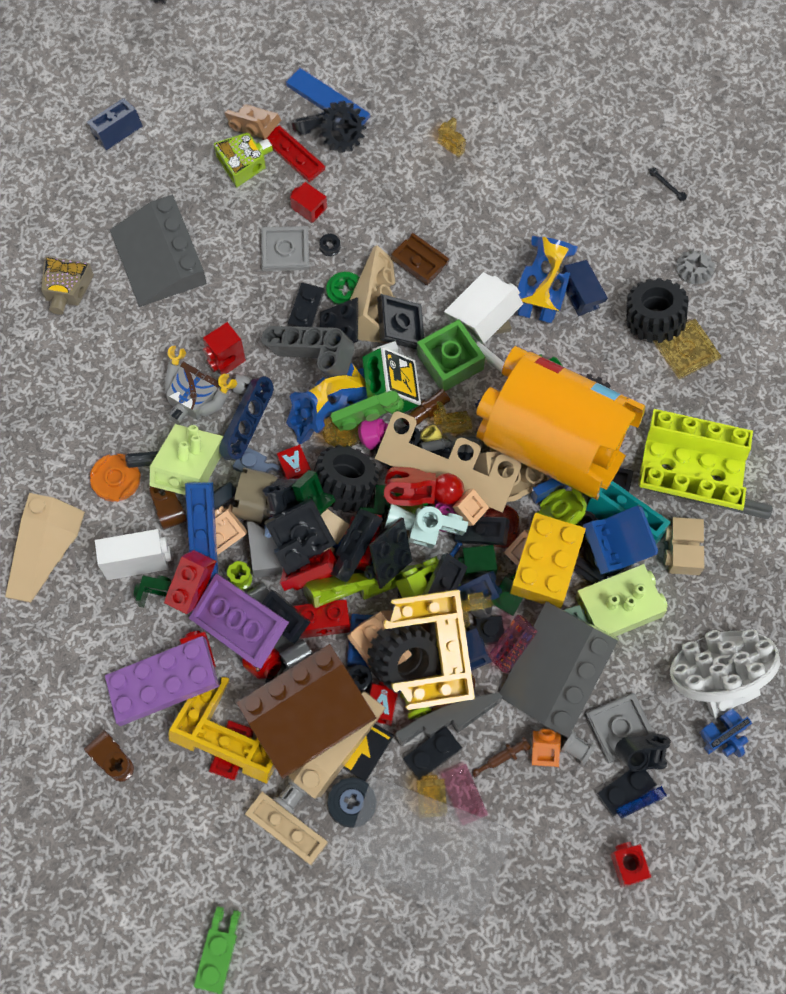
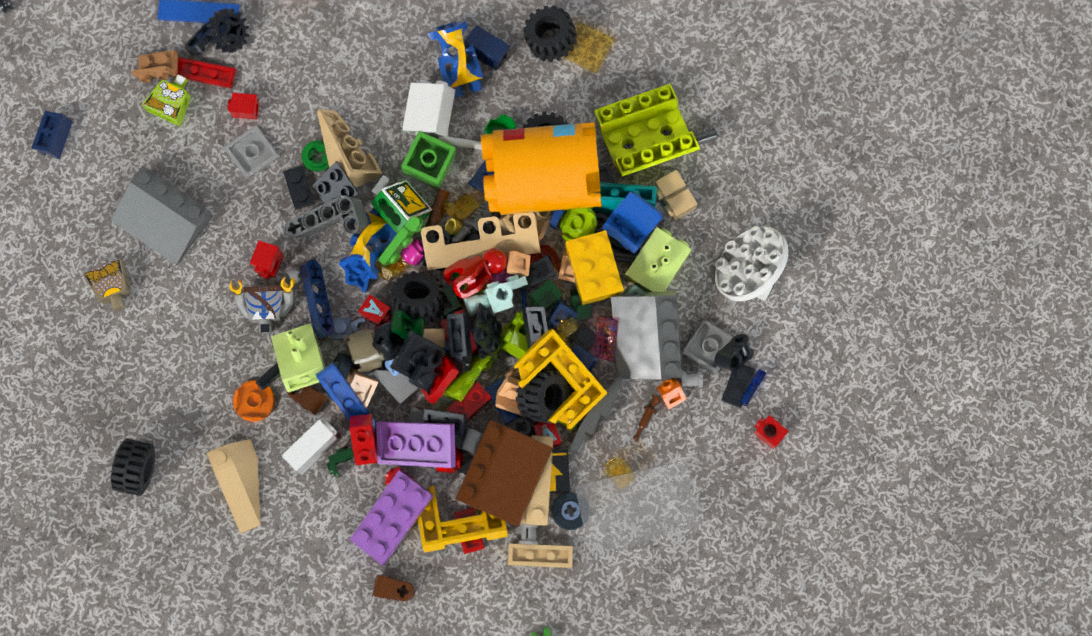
camera: 35 degrees left, 10 degrees up
(234, 570) = (395, 406): lime bush -> none
(334, 239) = (282, 122): black bush -> none
(400, 321) = (376, 157): black tile -> none
(419, 258) = (355, 98): reddish brown plate -> none
(432, 753) = (600, 444): black plate -> none
(464, 791) = (637, 455): clear pink tile -> none
(735, 725) = (780, 297): blue hips -> none

